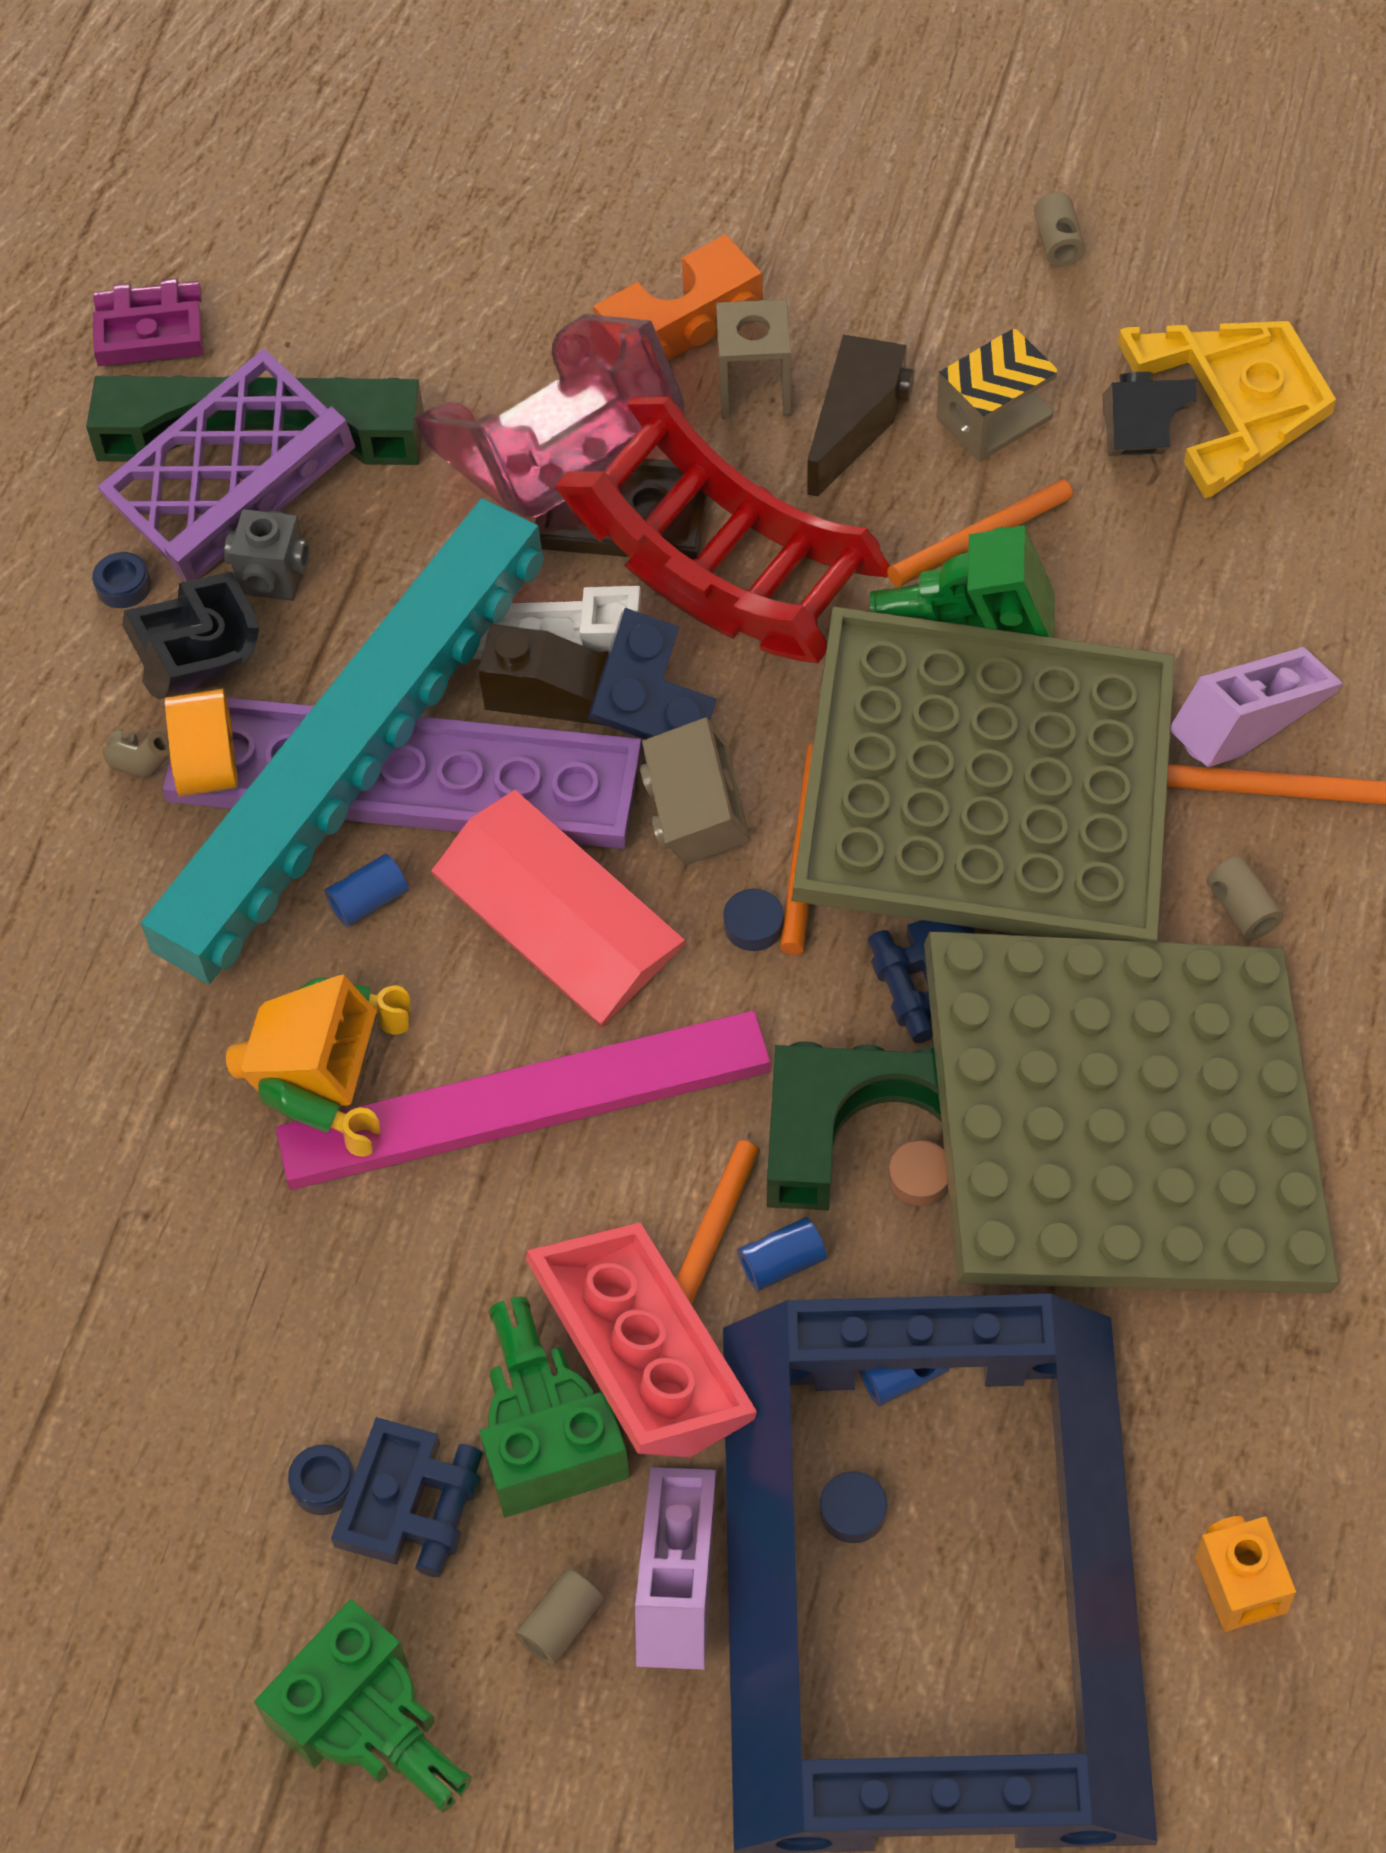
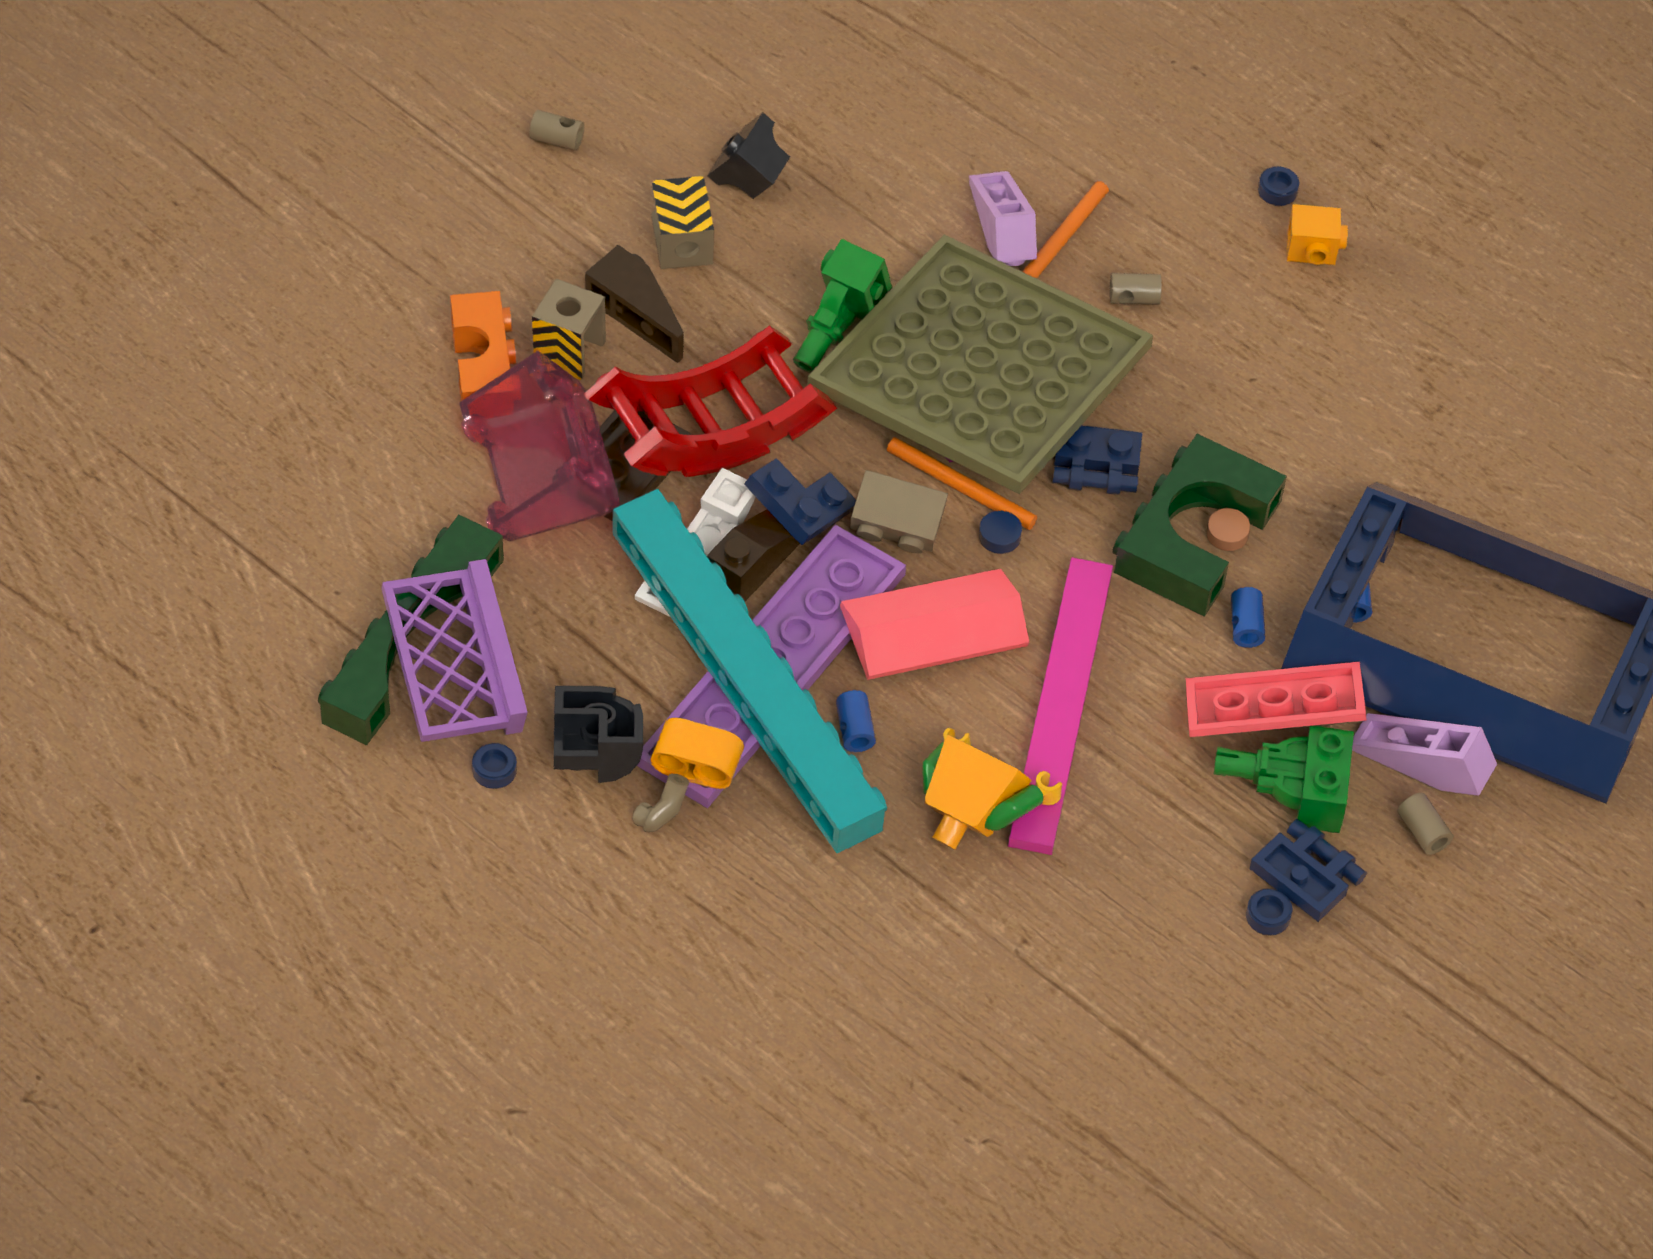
camera: 70 degrees left, 5 degrees down
(147, 322) = (277, 665): magenta plate -> none
(267, 553) = (543, 663): dark grey brick -> none
(351, 1699) = (1436, 939): green brick -> none
(717, 1218) = (1198, 638): orange bar -> none
(853, 1507) = (1430, 649): dark blue tile -> none
(958, 543) = (784, 284): orange bar -> none
(1125, 1115) = (1254, 407): olive plate -> none
(1244, 1572) = (1563, 495): light orange brick -> none
(1255, 379) = (744, 89): yellow wing -> none

